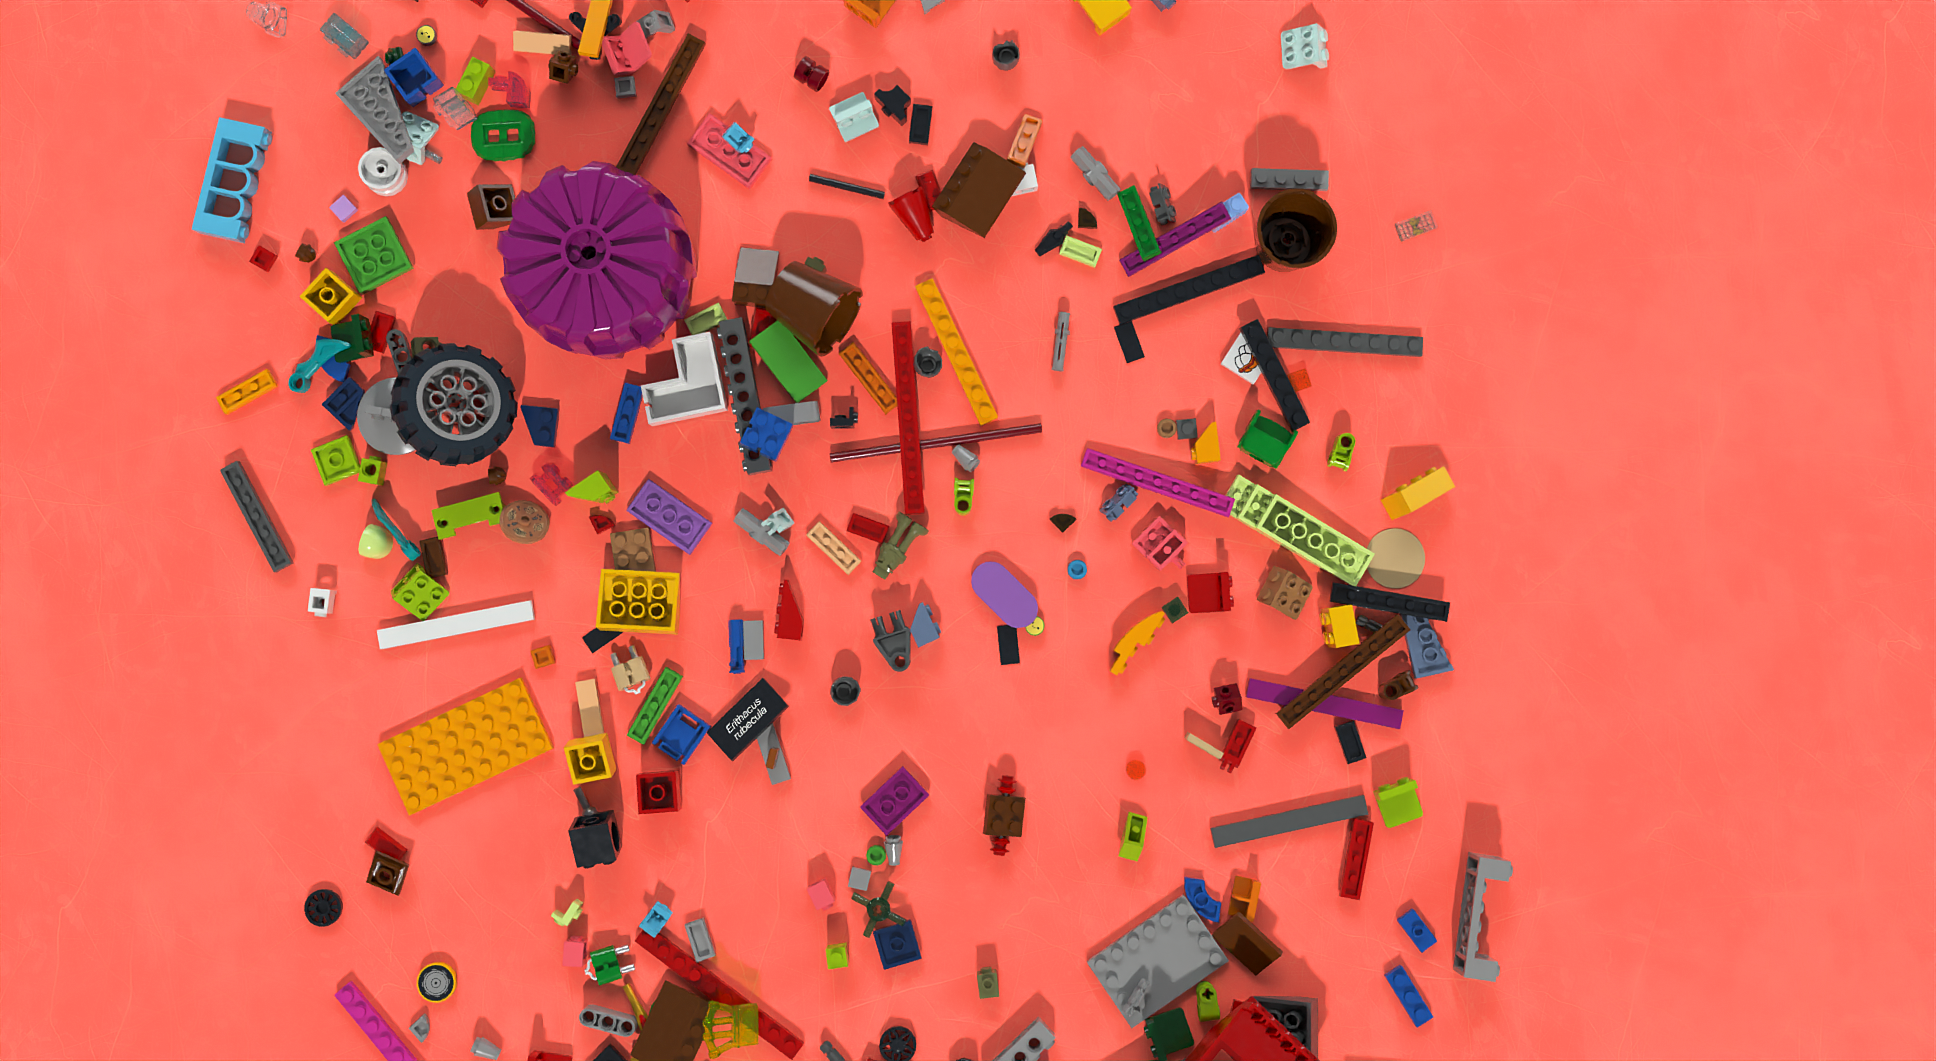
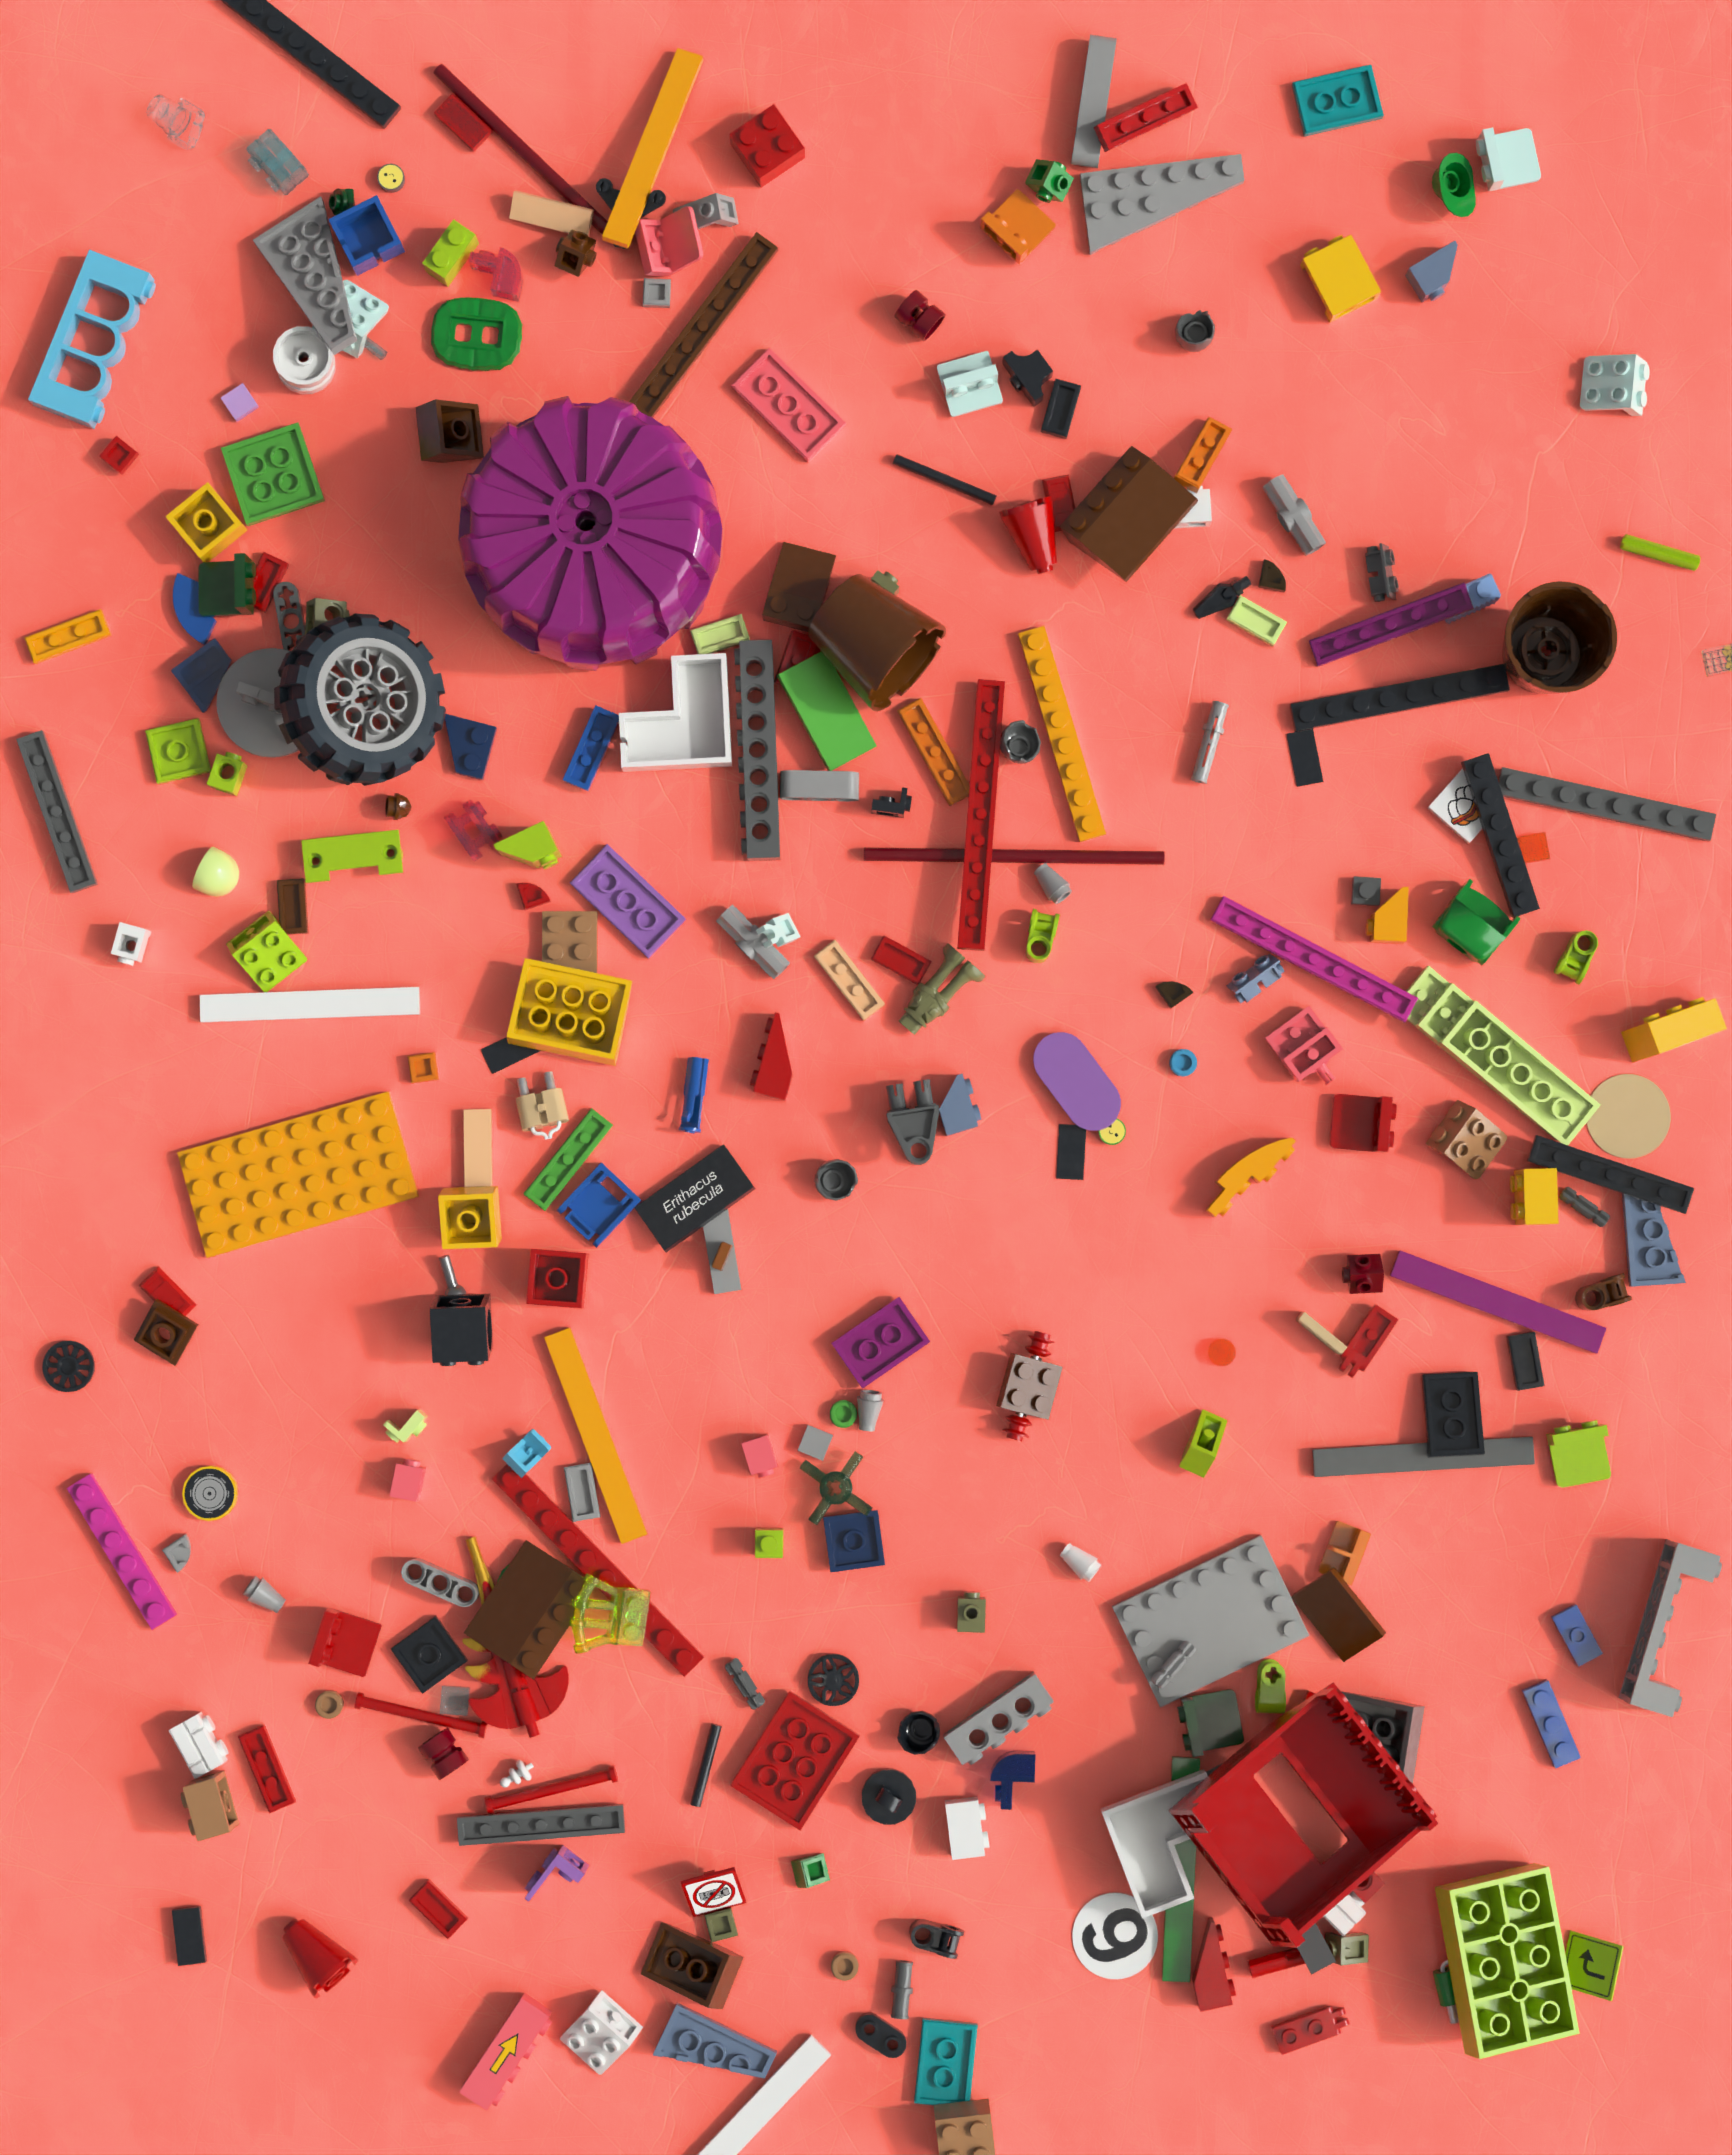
camera: 10 degrees right, 0 degrees up
(305, 253) = (179, 457): reddish brown plate -> none
(323, 351) = (183, 598): teal piece -> none
(406, 546) = (258, 883): teal piece -> none
(454, 108) = (417, 288): clear brick -> none
(524, 522) = (427, 877): nougat shield -> none
(607, 965) = (449, 1505): green piece -> none
(704, 898) = (596, 1435): none -> light orange tile
(738, 138) = (805, 390): medium azure bracket -> none
(753, 639) = (719, 1090): light grey tile -> none
(766, 433) = (785, 806): blue piece -> none
(1059, 934) = (1081, 1562): none -> white cone
(1139, 223) = (1344, 594): green plate -> none
(1166, 428) = (1338, 885): medium nougat tile -> none
(1174, 610) = (1310, 1139): clear green plate -> none
(1200, 900) = (1283, 1547): blue tile -> none
(1289, 179) = (1564, 565): light grey plate -> none
(1305, 788) = (1453, 1414): none -> black tile
(1342, 671) = (1530, 1260): reddish brown plate -> none
(1354, 160) = (1660, 552): none -> lime axle
(1356, 859) = (1508, 1523): red plate -> none

